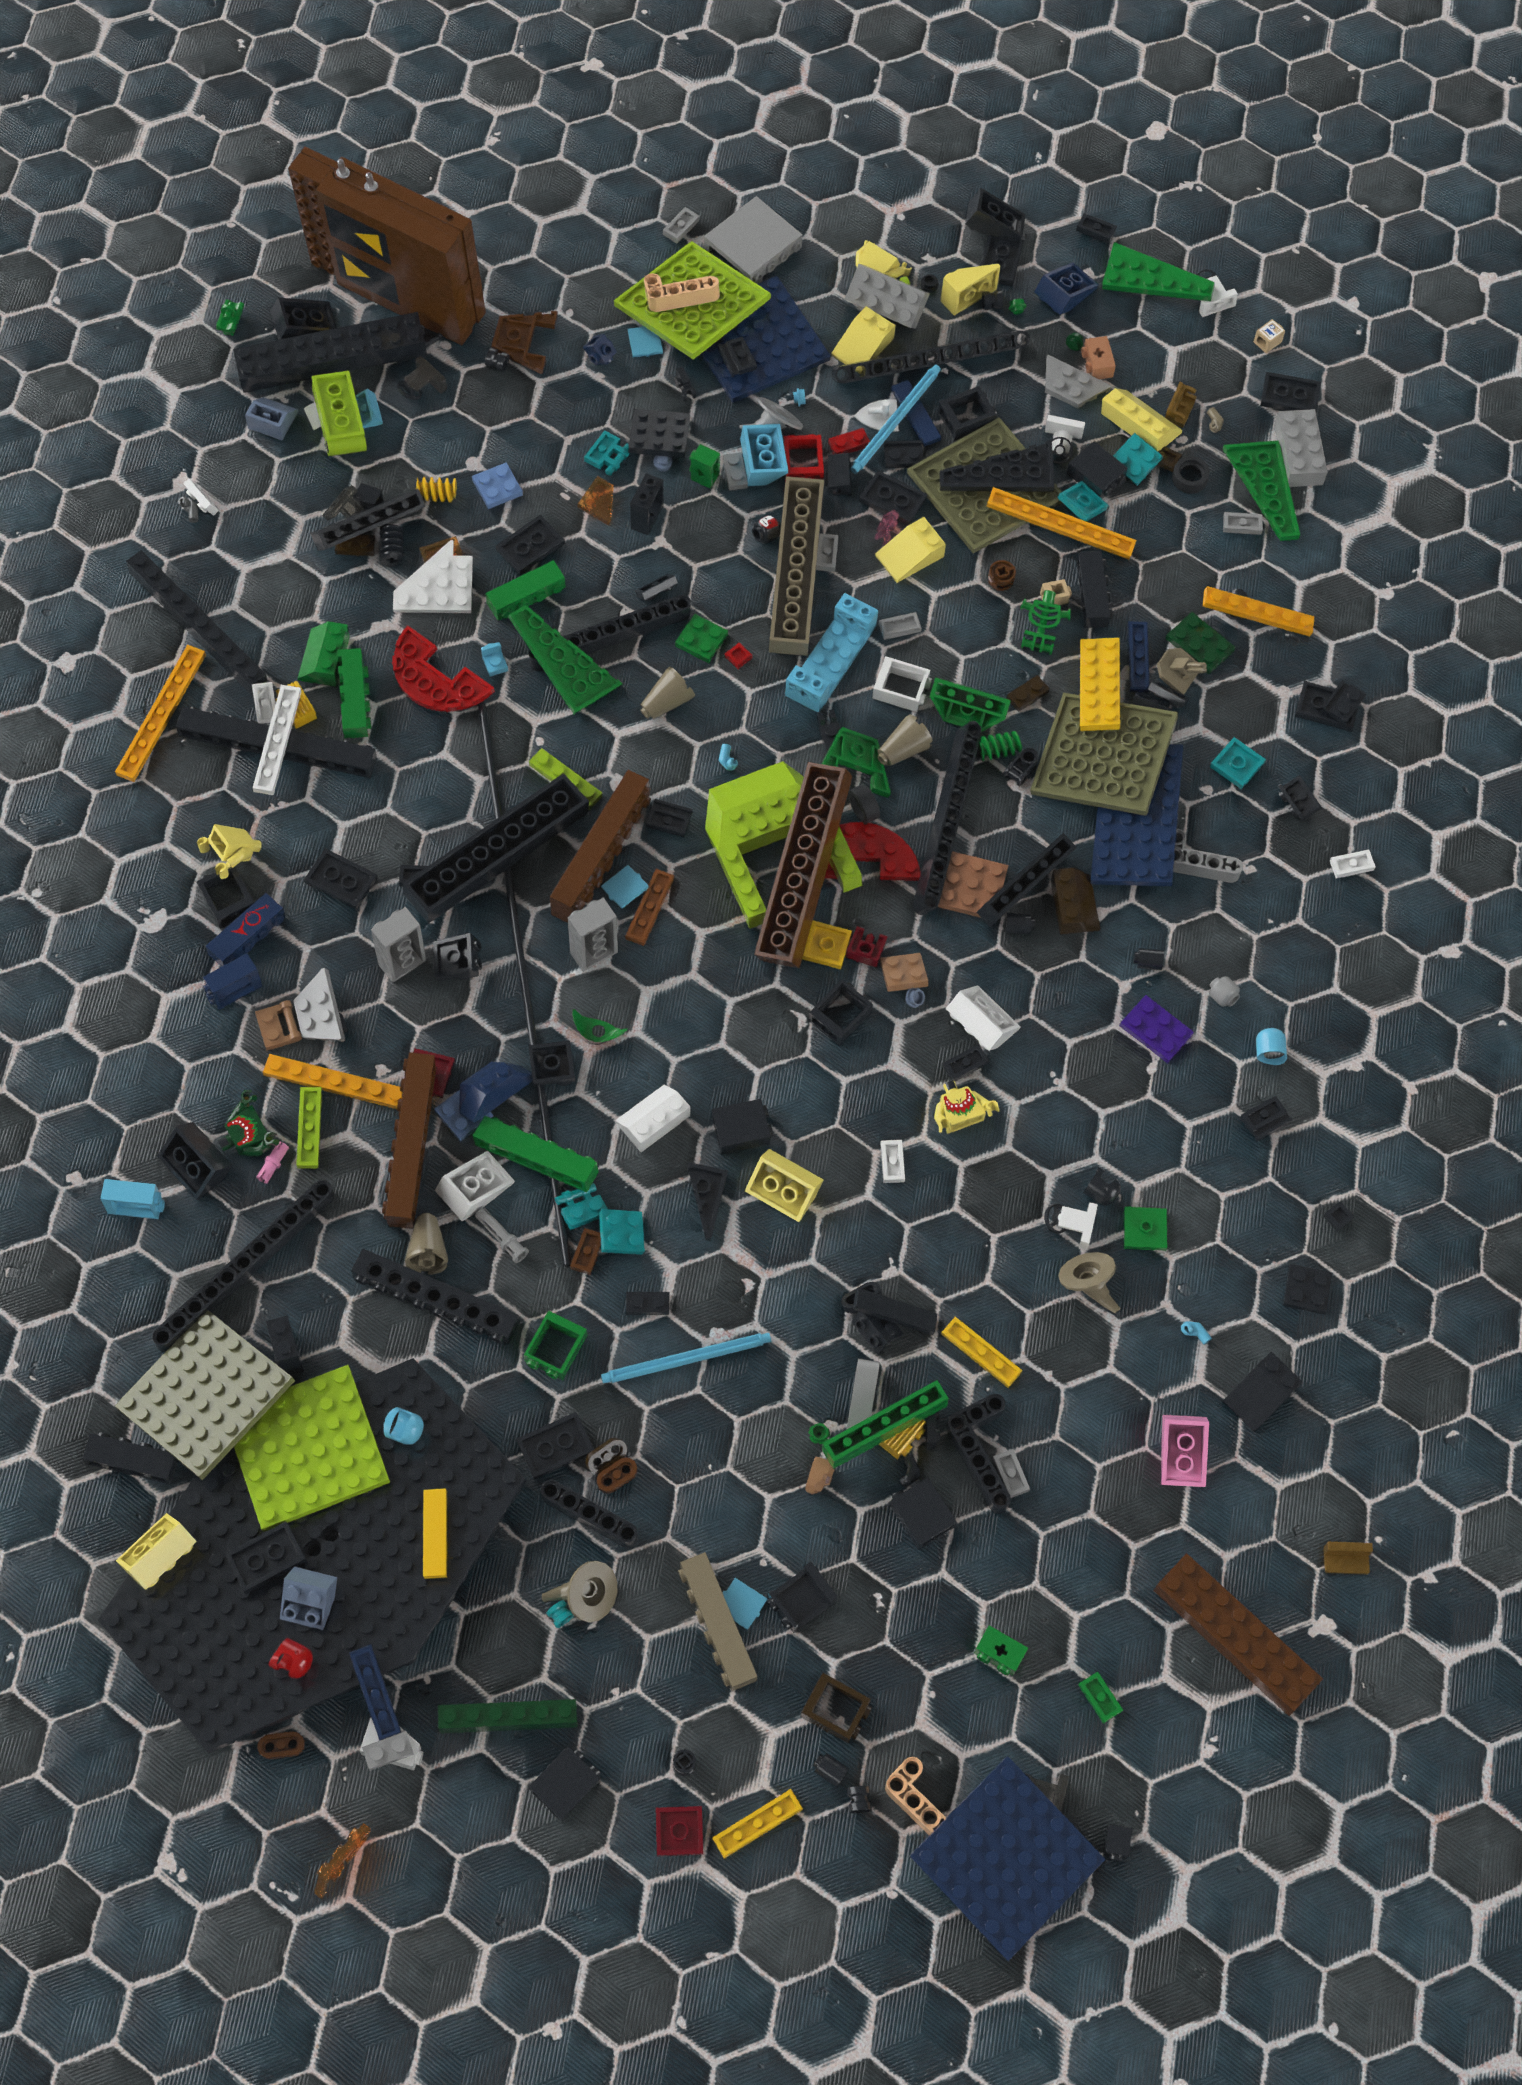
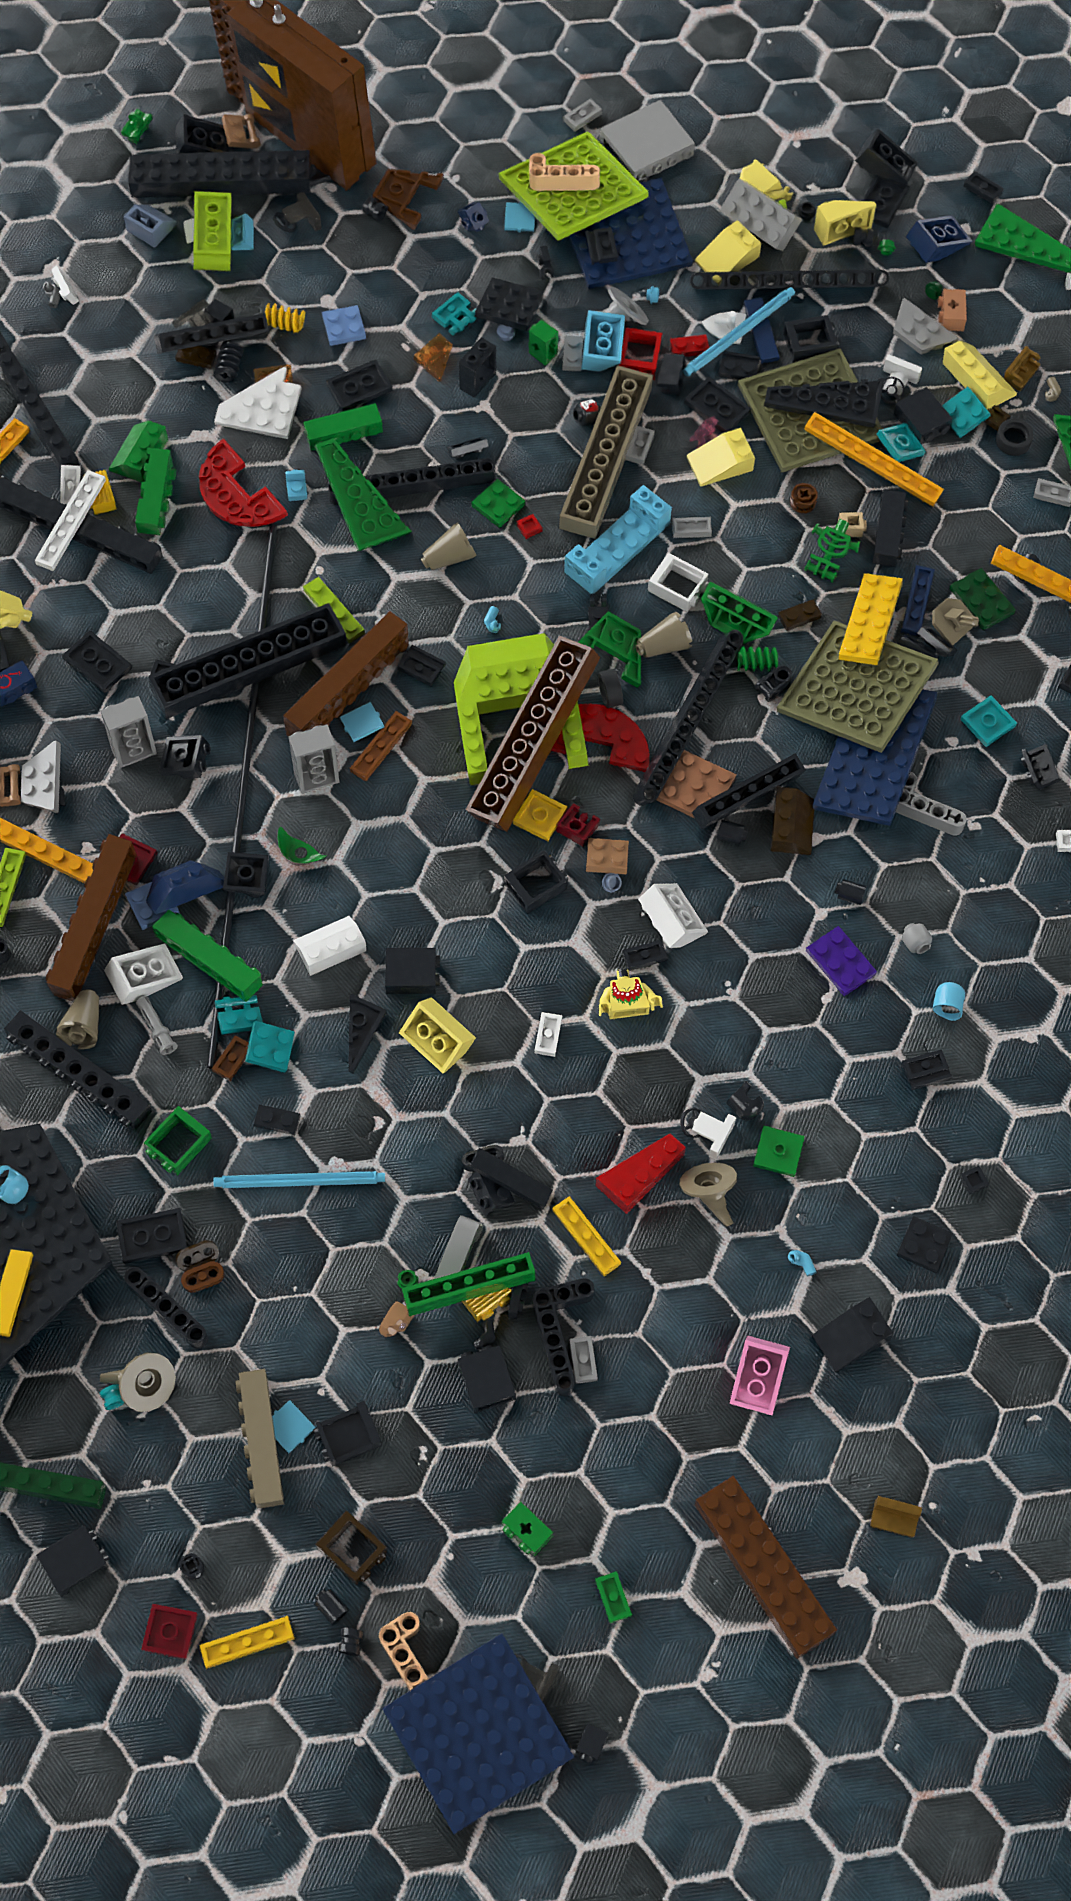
camera: 15 degrees right, 0 degrees up
(333, 305) = (235, 131): none -> medium nougat plate
(1014, 1284) = (640, 1173): none -> red wedge

